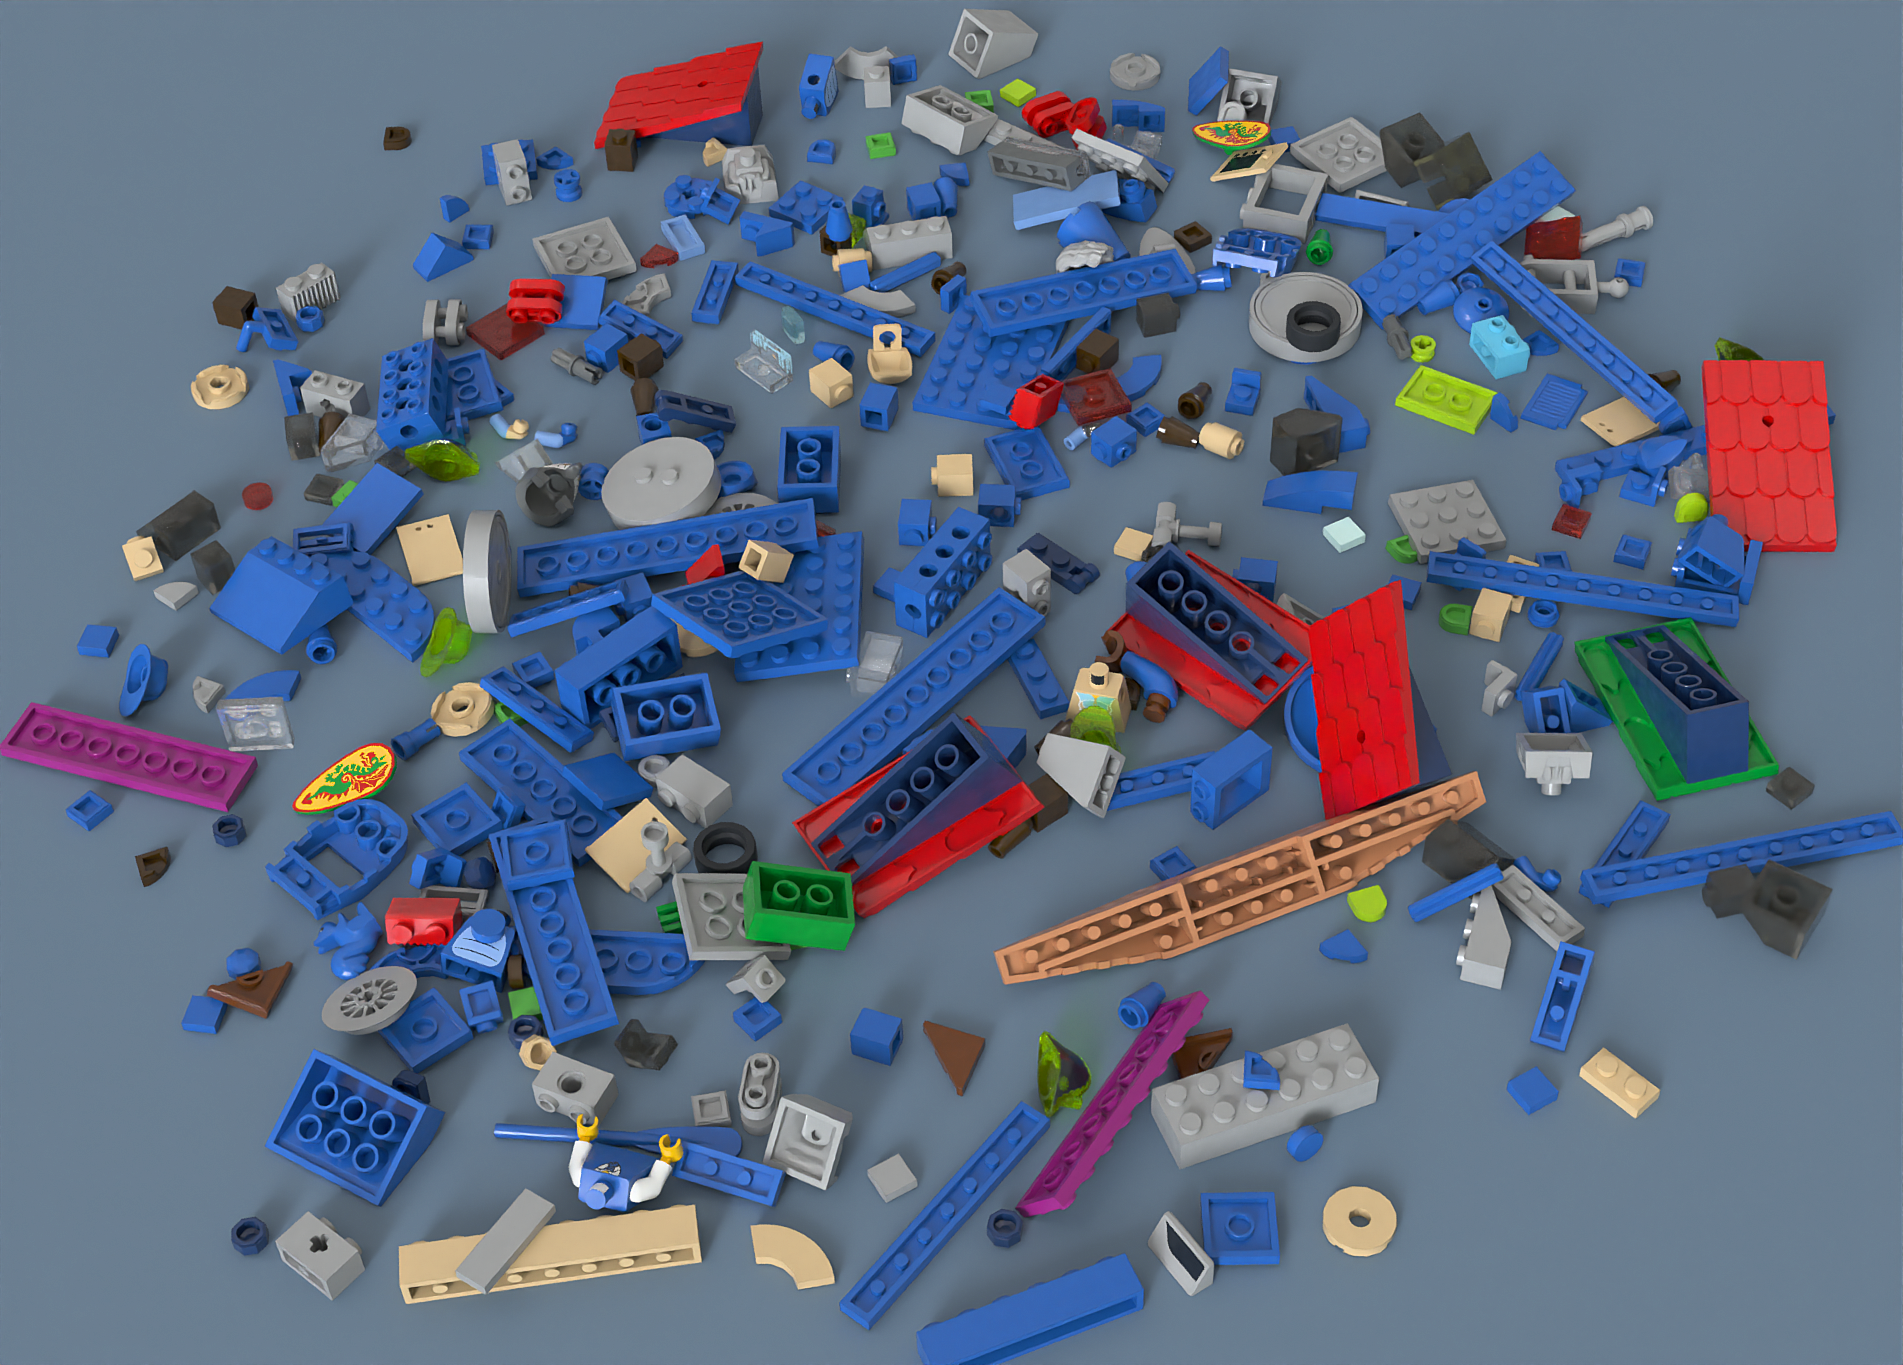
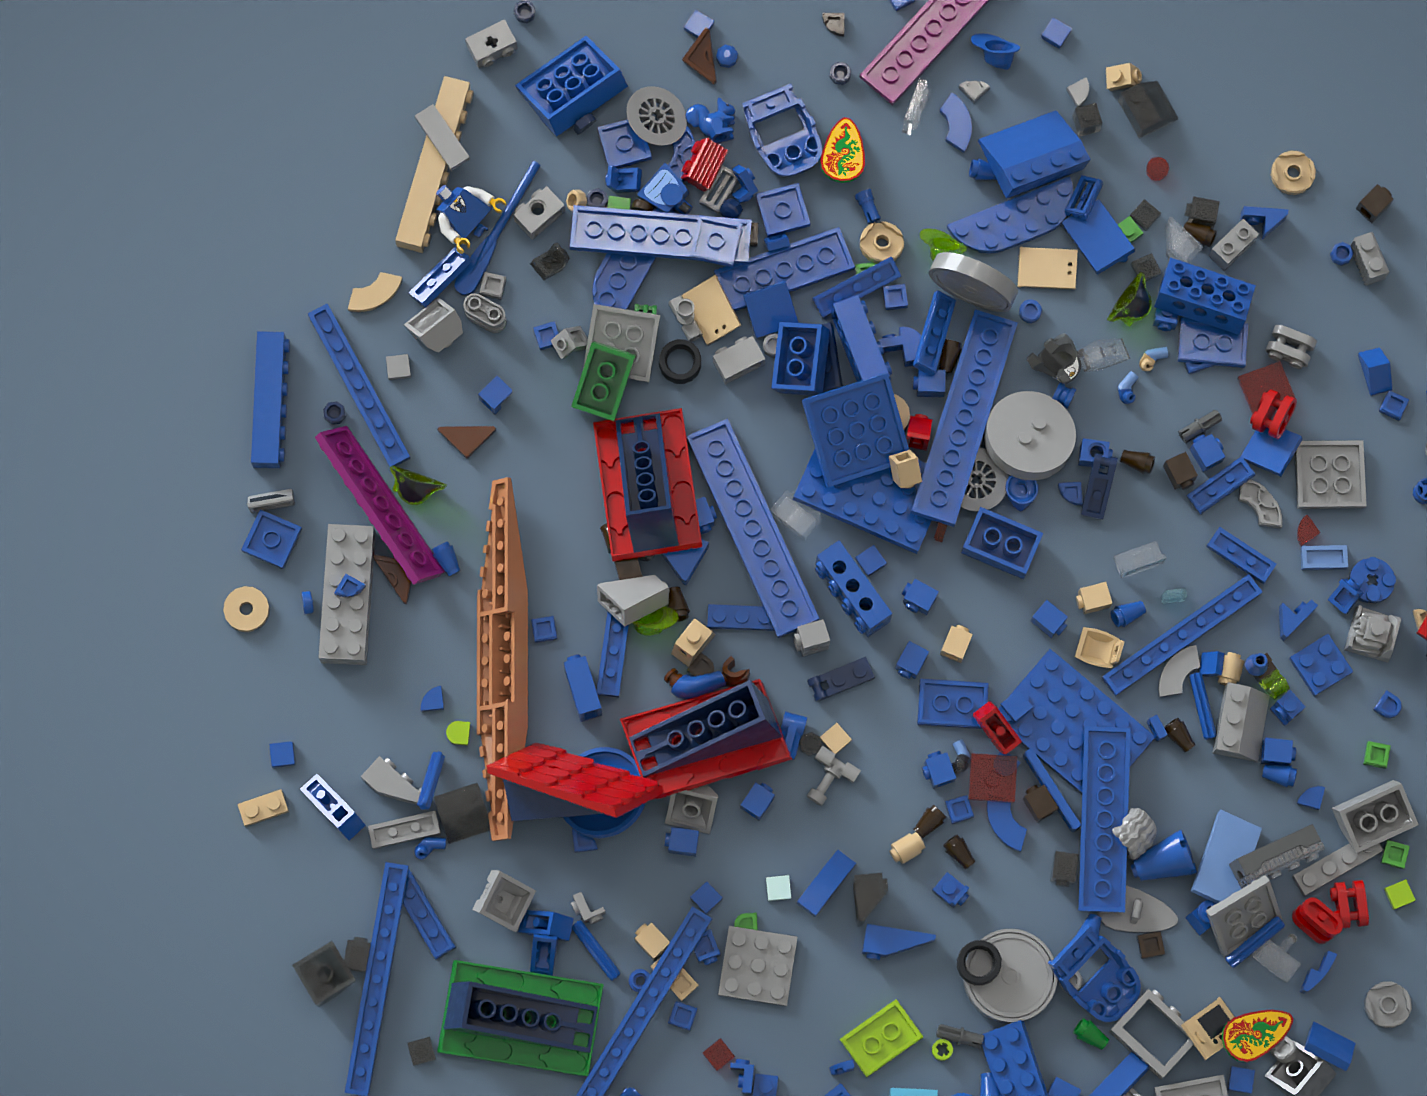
camera: 110 degrees right, 30 degrees up
(273, 328) = (1338, 223): blue plate -> none
(1455, 618) = (666, 921): bright green tile -> none
(1632, 551) = (670, 1079): blue tile -> none

